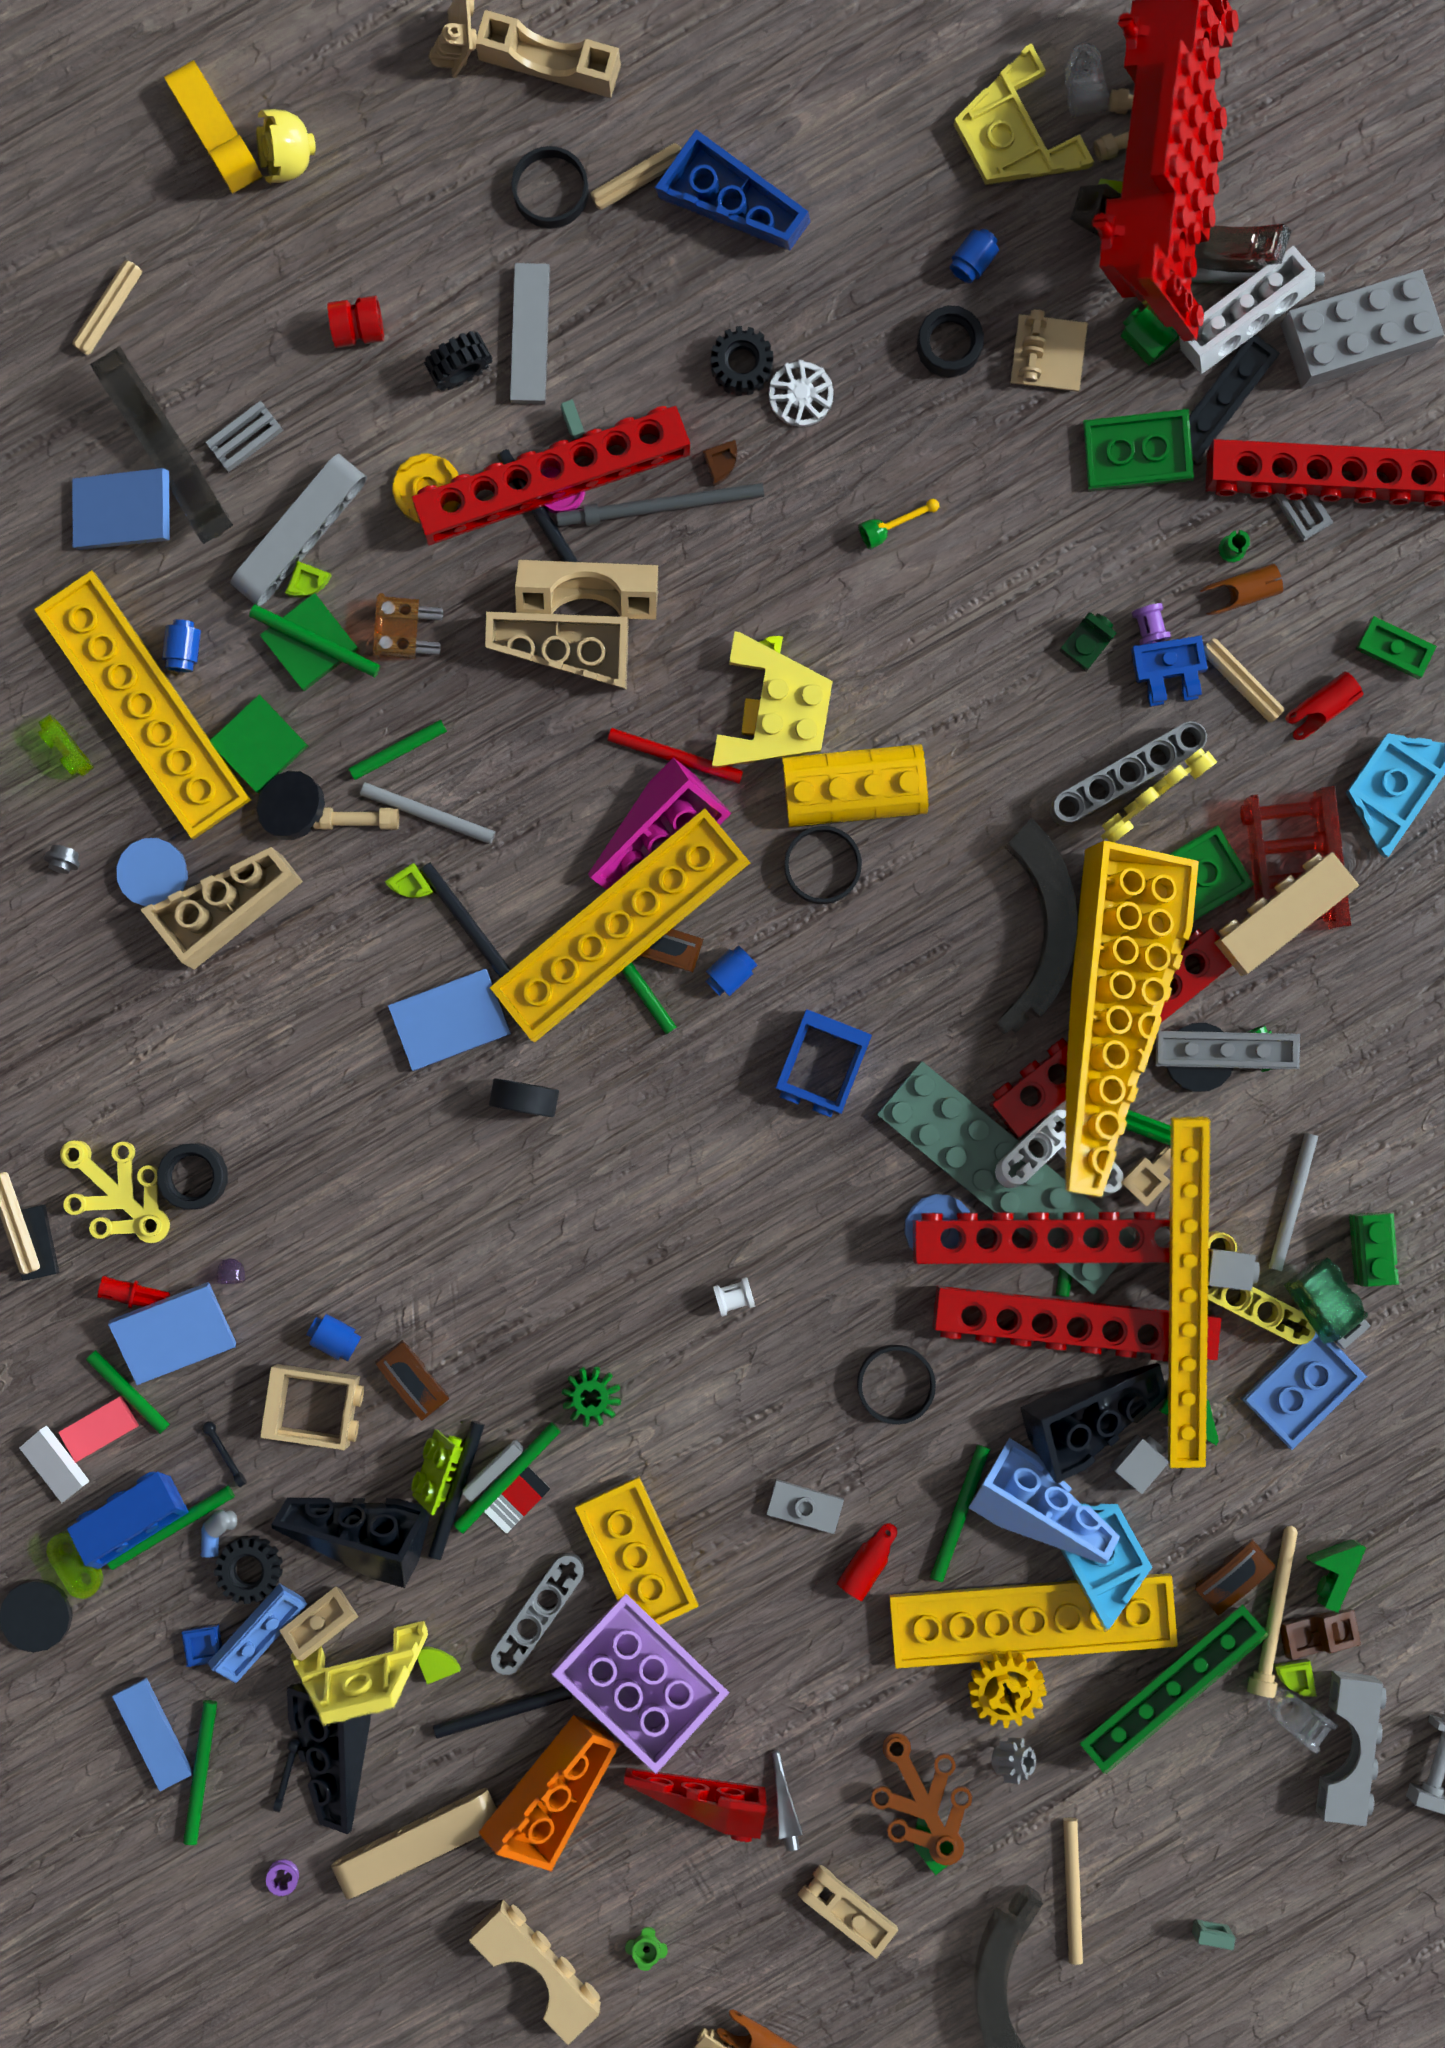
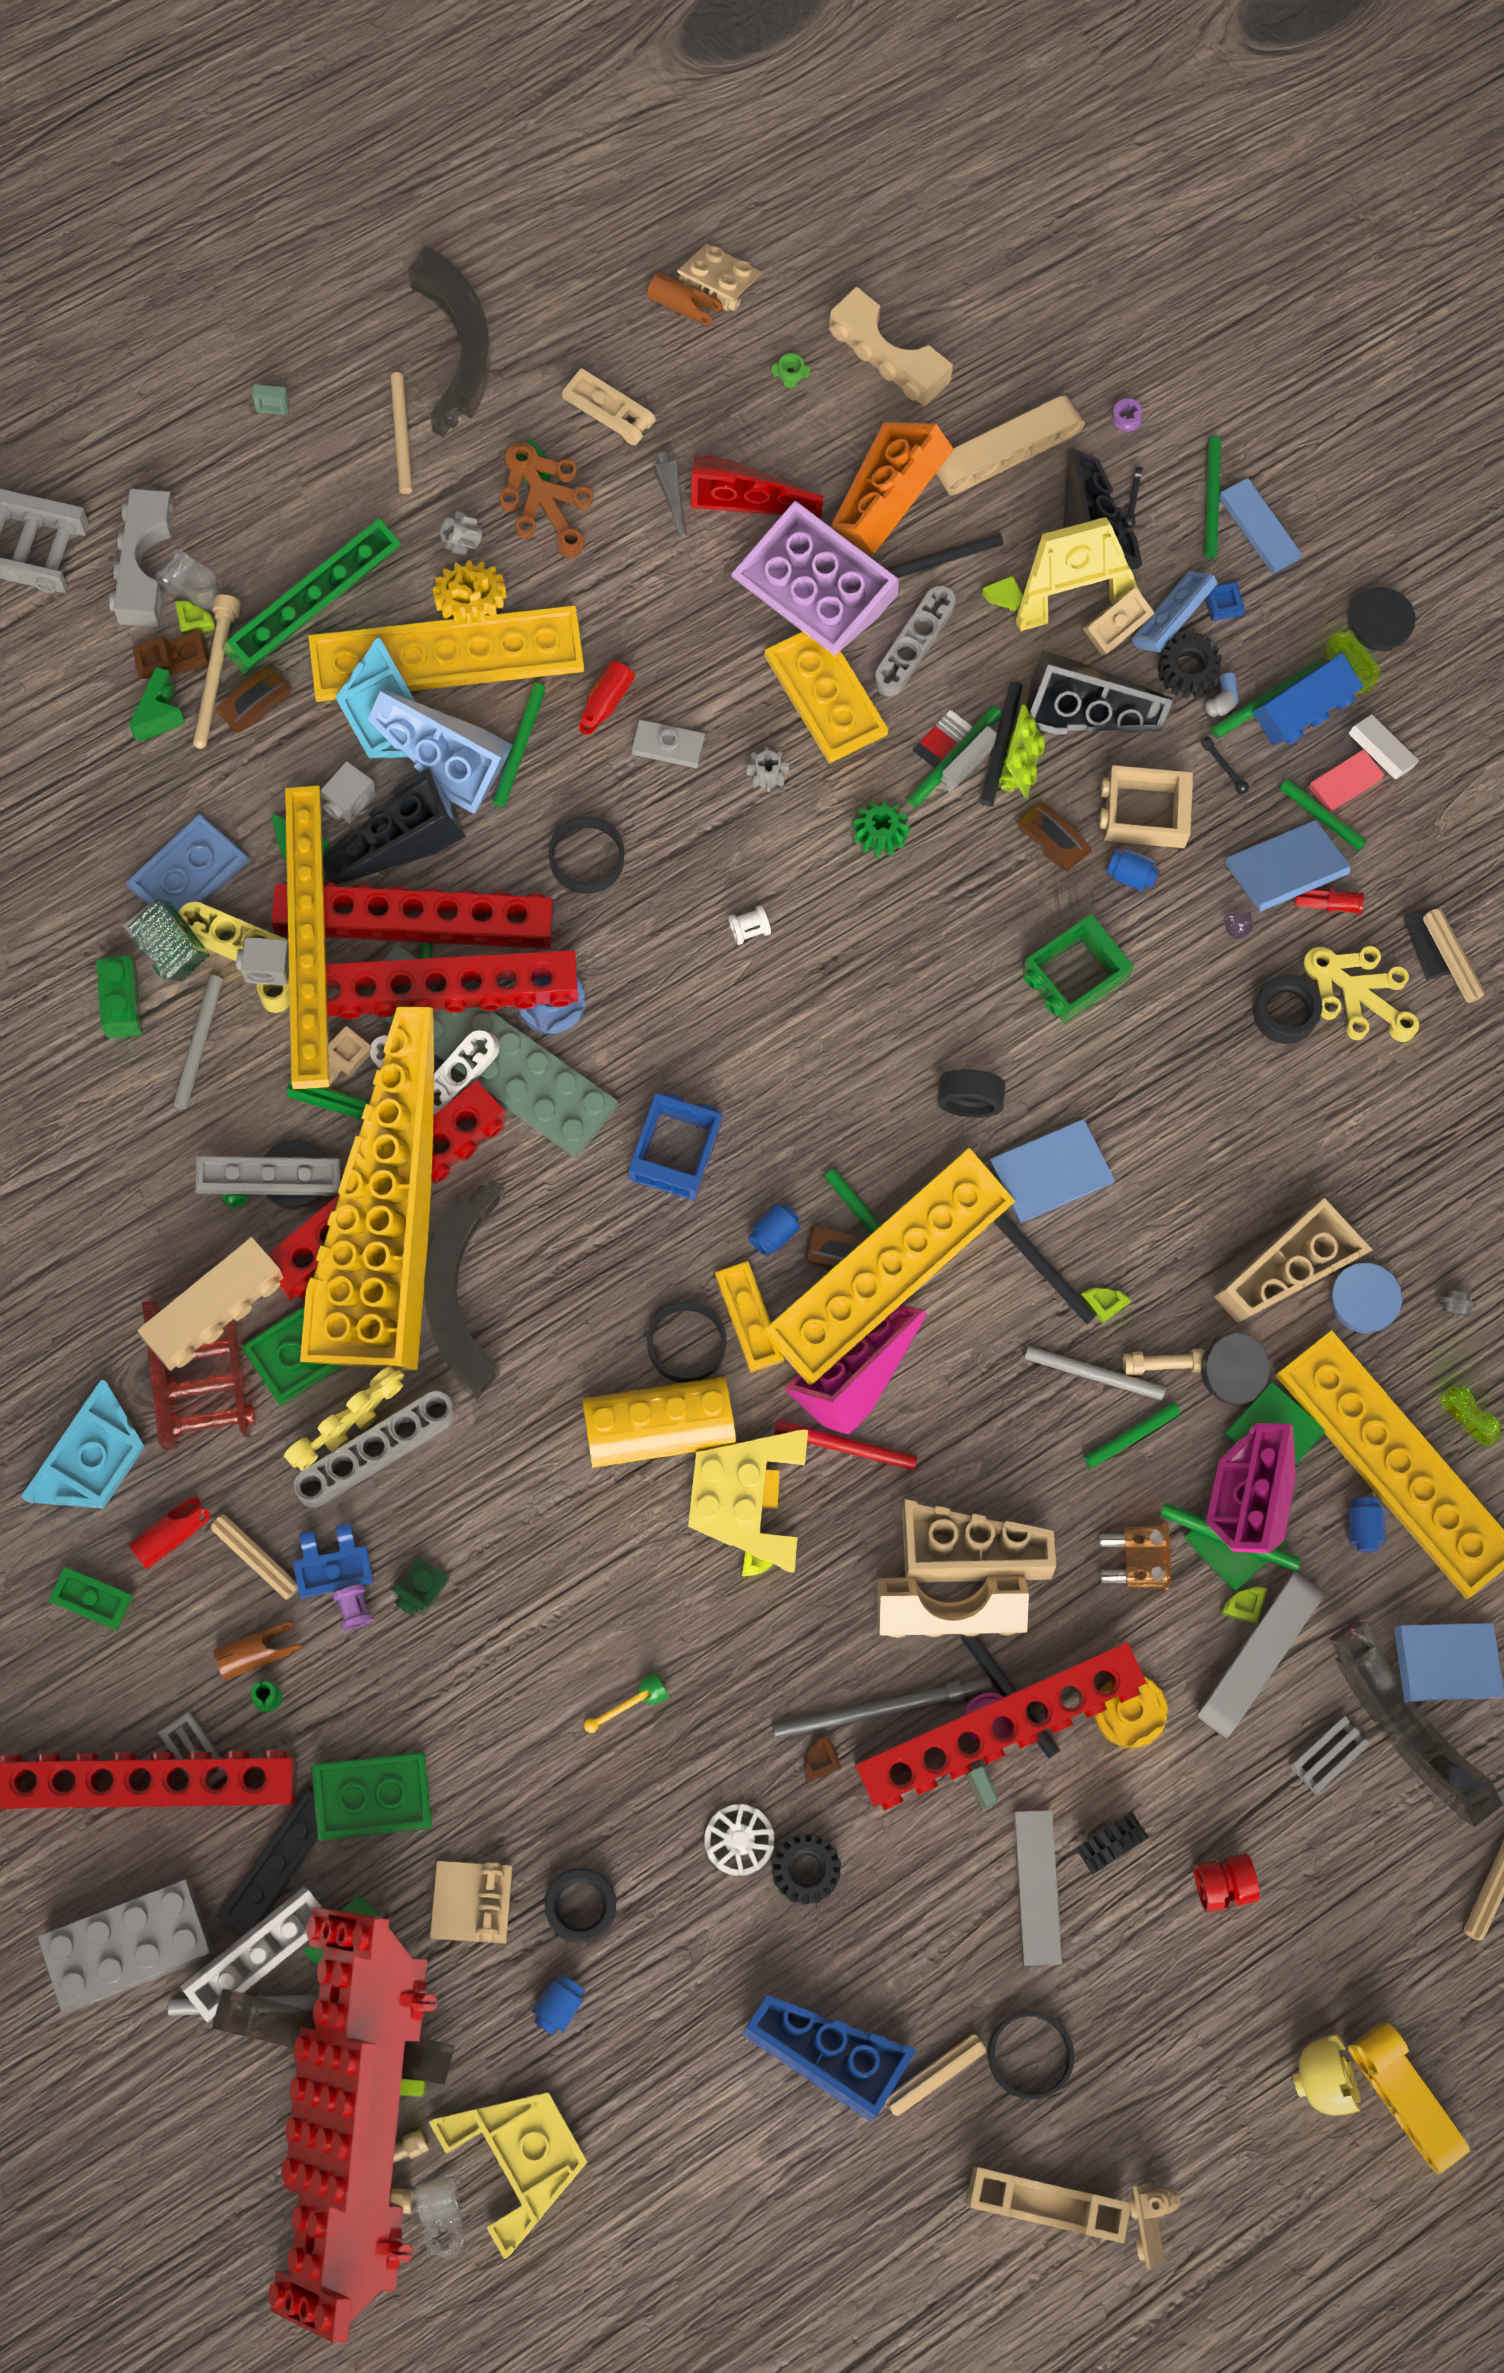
camera: 170 degrees right, 15 degrees down
(288, 674) = (1254, 1490): none -> dark pink wedge
(373, 1249) = (1102, 948): none -> green window
(712, 1463) = (767, 760): none -> light grey gear
(762, 891) = (748, 1315): none -> yellow tile

